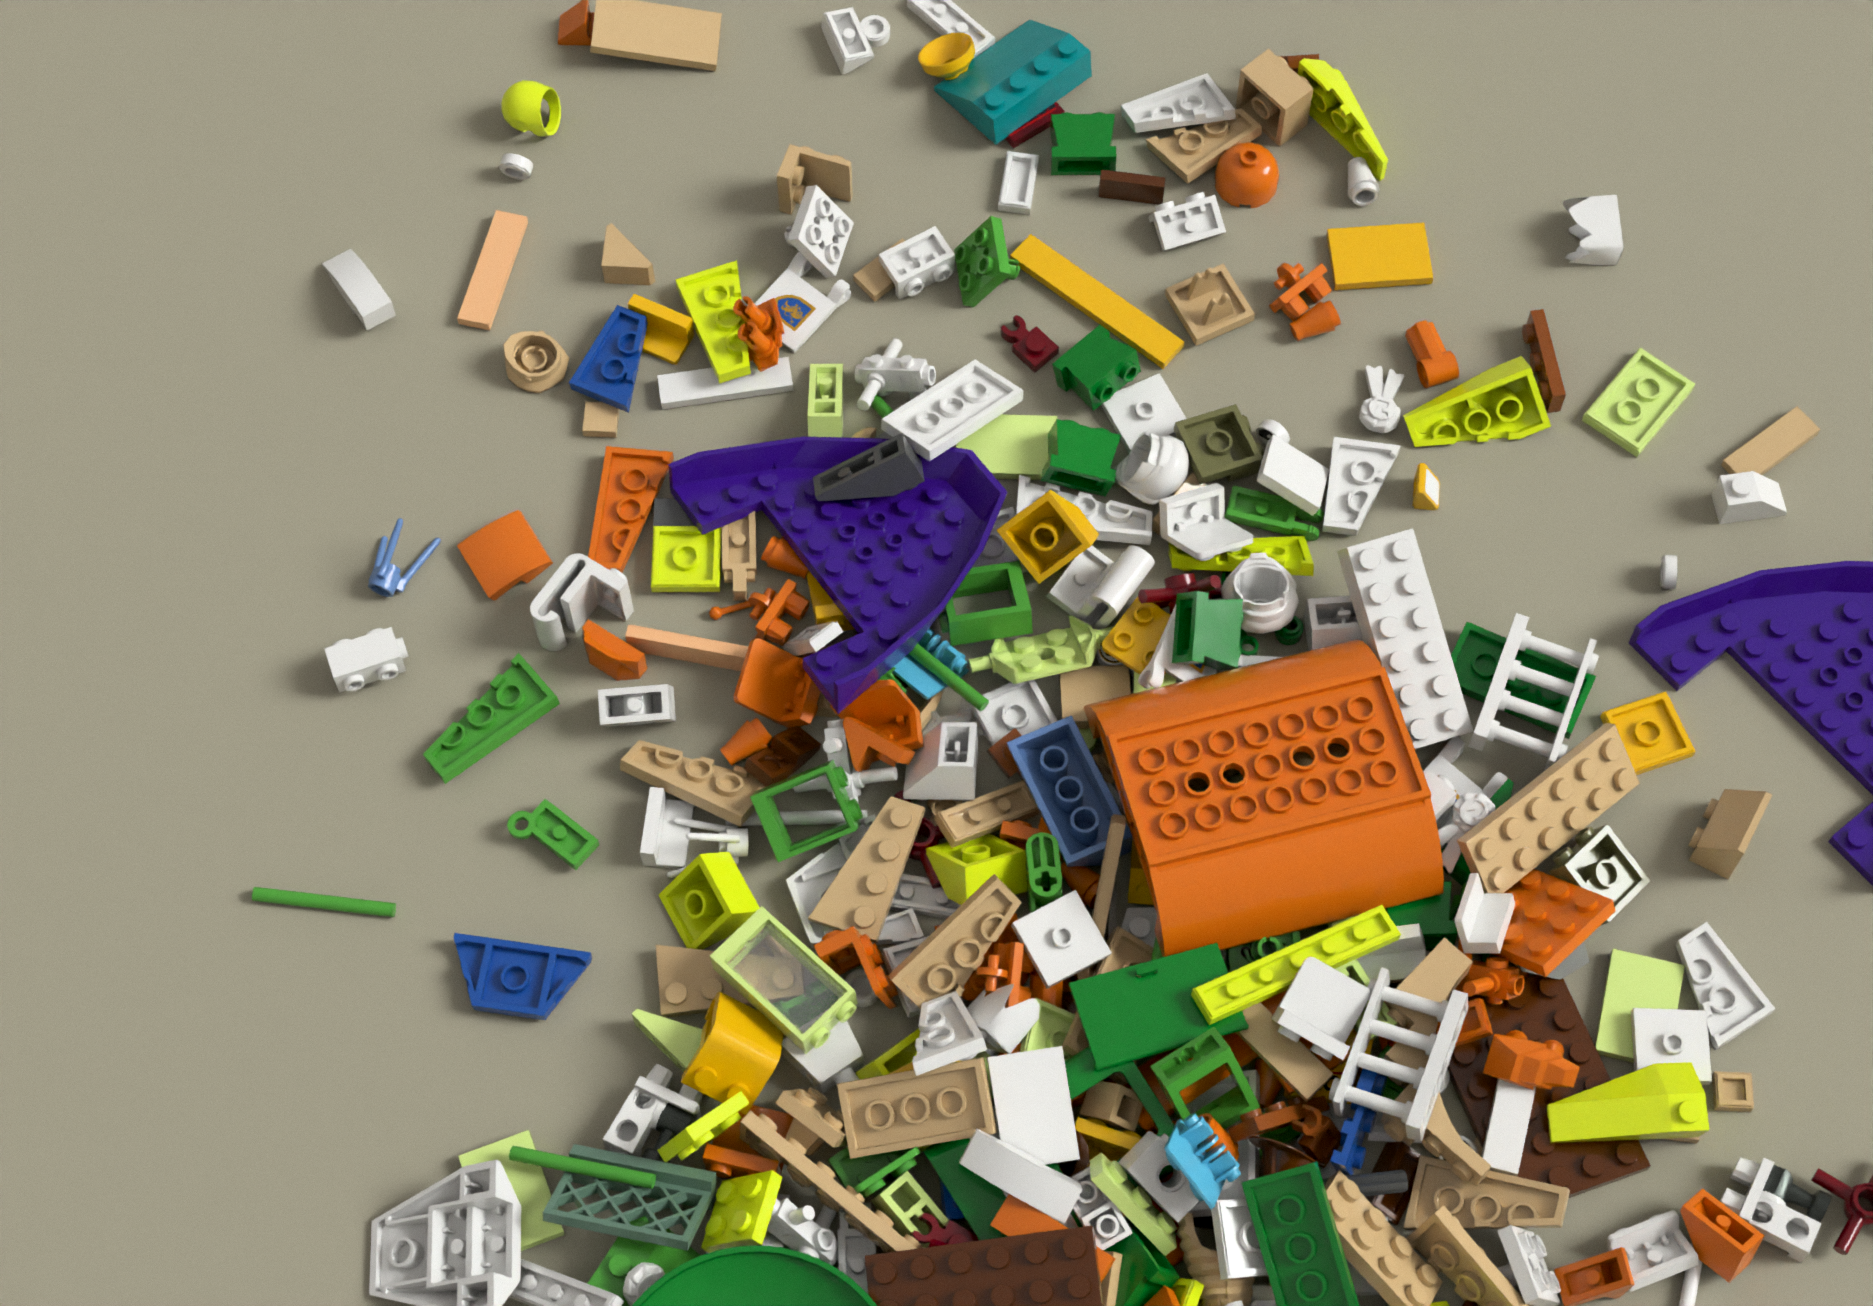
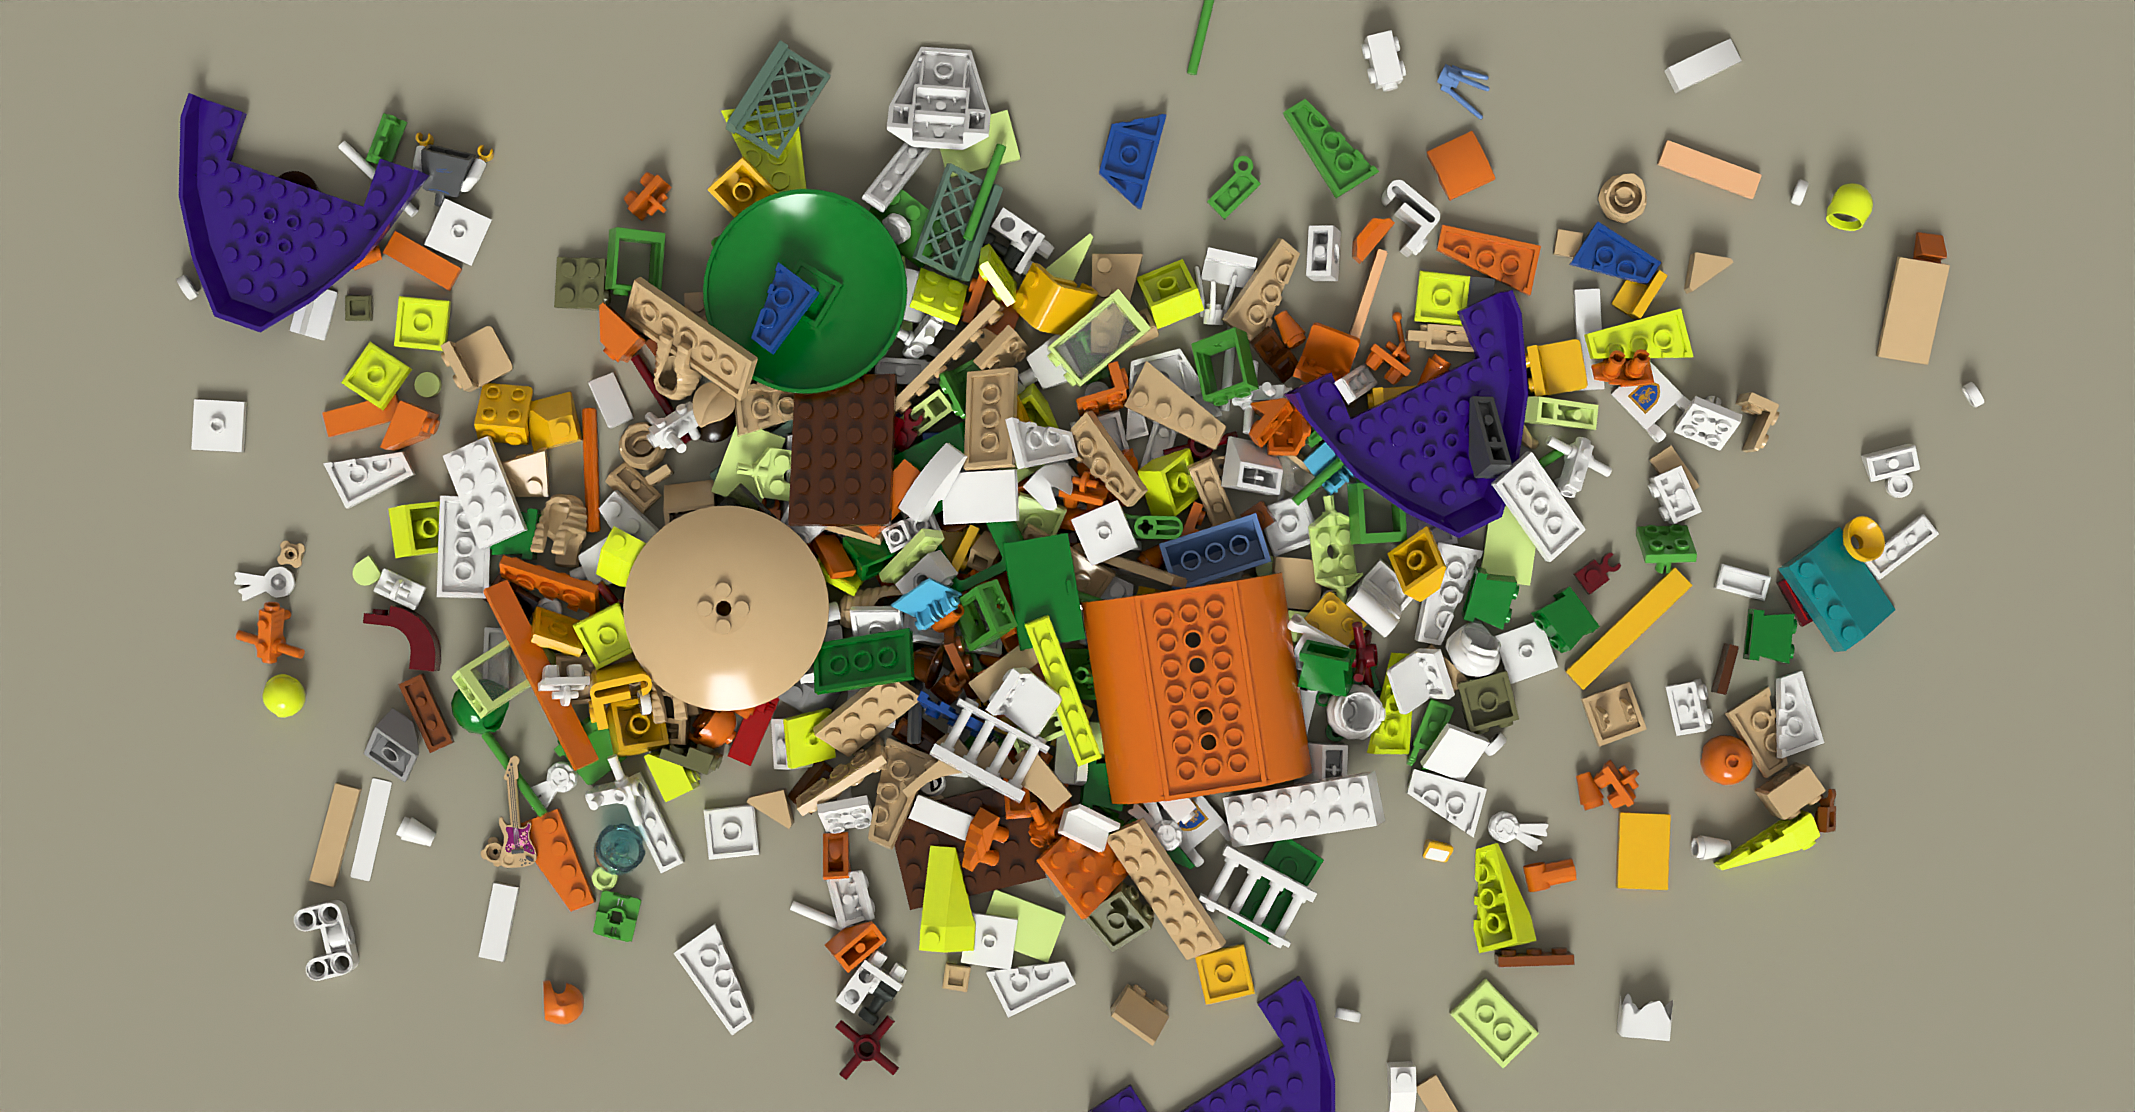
camera: 90 degrees right, 25 degrees up
(766, 409) = (1556, 368): none -> yellow bracket

